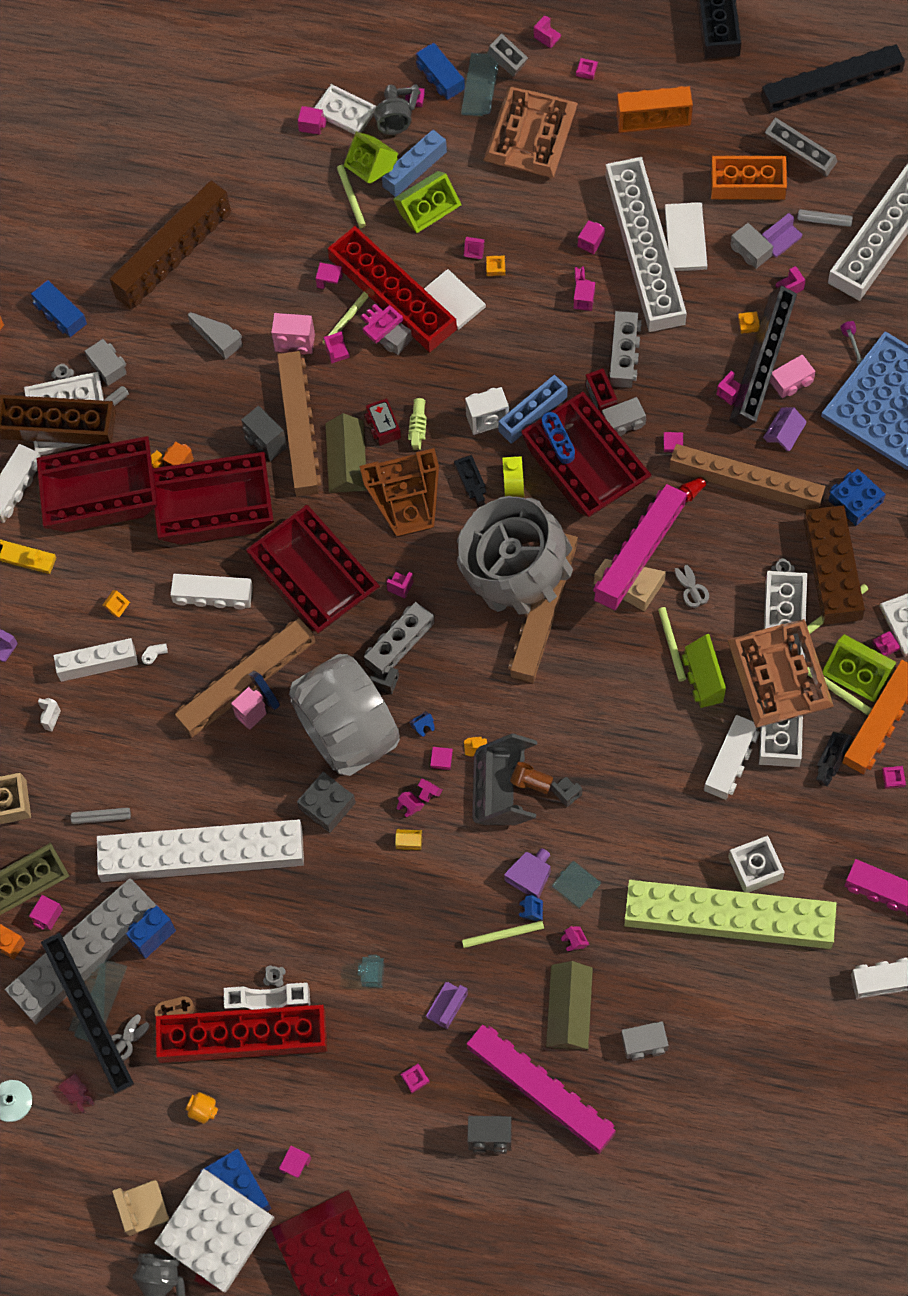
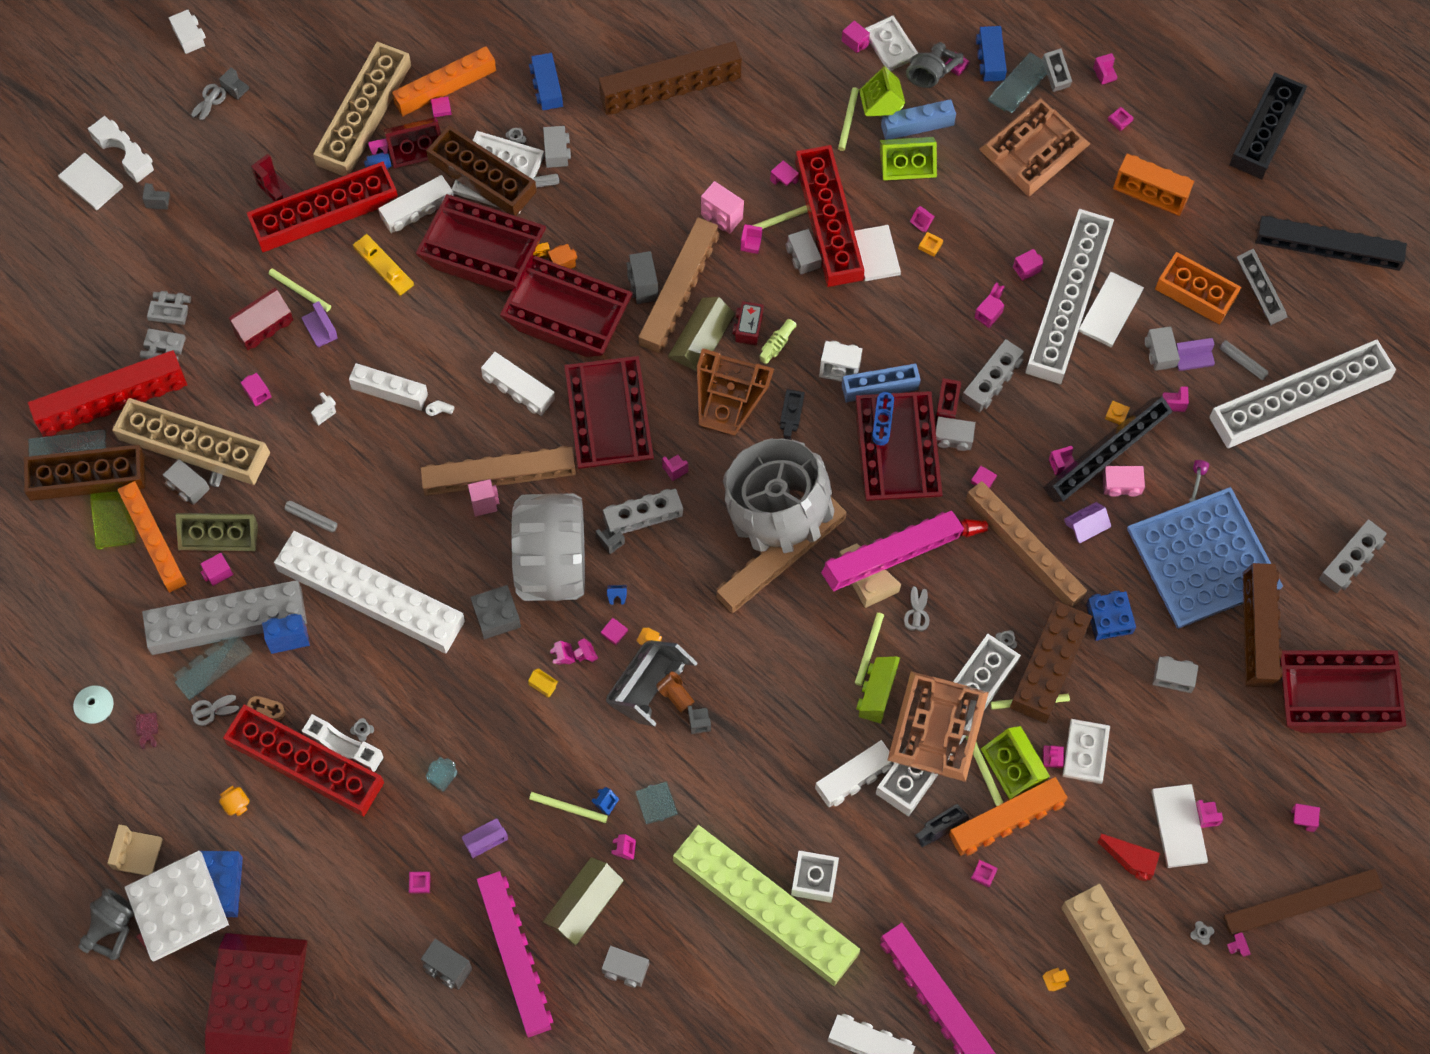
camera: 25 degrees right, 0 degrees up
(87, 1013) = (191, 669): black brick -> none
(116, 603) = (434, 350): light orange plate -> none
(217, 334) = (661, 174): light grey slope -> none
(264, 689) = (505, 489): dark blue tile -> none
(294, 1162) = (277, 890): dark pink panel -> none
(380, 322) = (799, 238): dark pink hinge -> none
(513, 477) = (826, 431): neon yellow brick -> none
(530, 873) = (623, 770): medium lavender torso -> none

